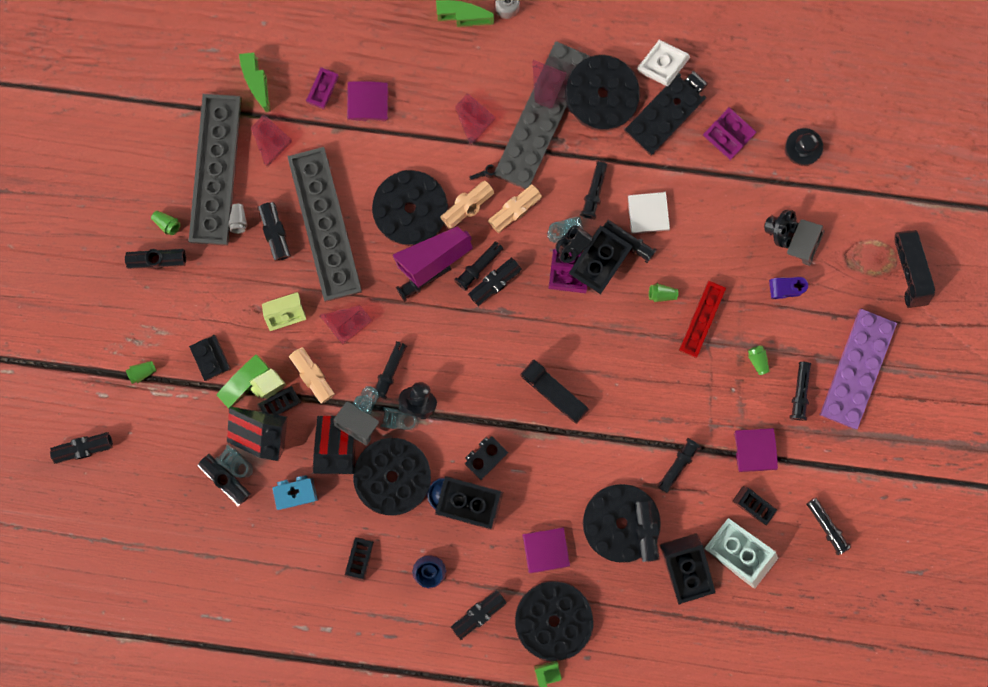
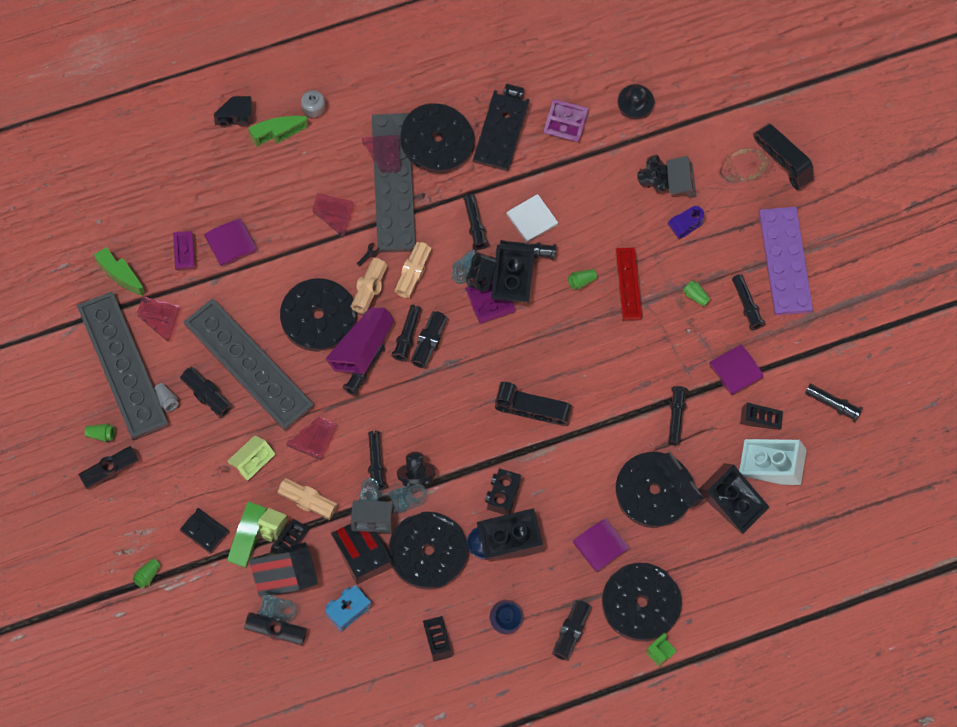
camera: 30 degrees left, 15 degrees down
(81, 448) = (126, 667): black piece -> none
(663, 63) = (476, 89): white tile -> none

